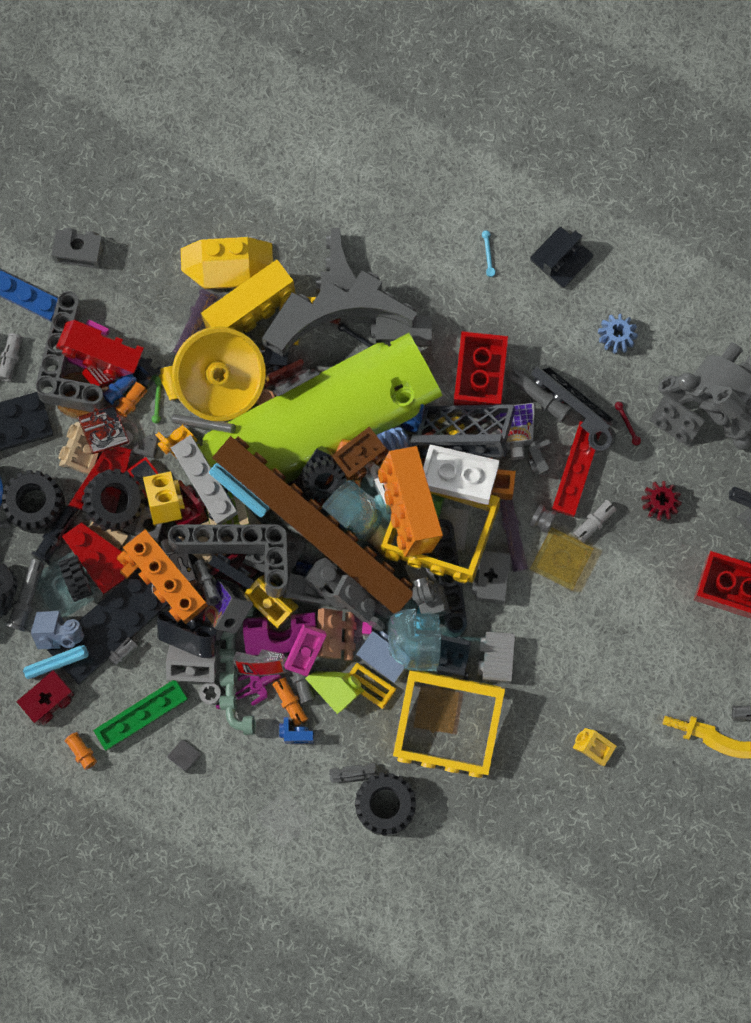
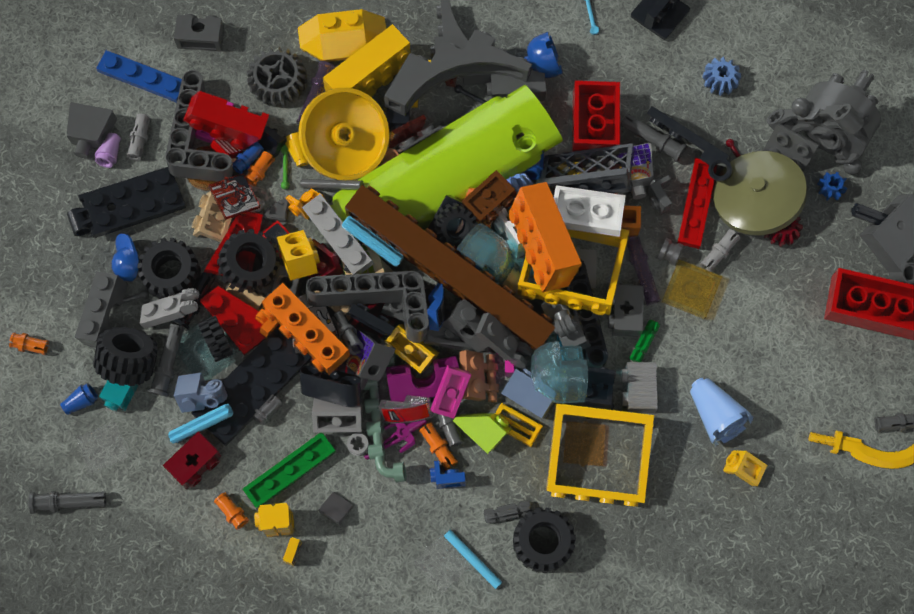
camera: 10 degrees left, 5 degrees down
(30, 542) = (169, 308): none -> light grey hinge
(123, 764) = (275, 519): none -> yellow brick
(138, 795) = (292, 551): none -> yellow tile
(161, 285) = (279, 62): none -> dark grey gear
(299, 563) = (437, 307): none -> blue slope
(314, 816) = (473, 559): none -> medium azure bar
(433, 300) = (544, 56): none -> blue cylinder
(507, 610) = (644, 341): none -> green axle
(573, 689) = (719, 411): none -> light blue cone
(642, 465) = (761, 194): none -> olive dish
(721, 455) = (832, 186): none -> blue gear

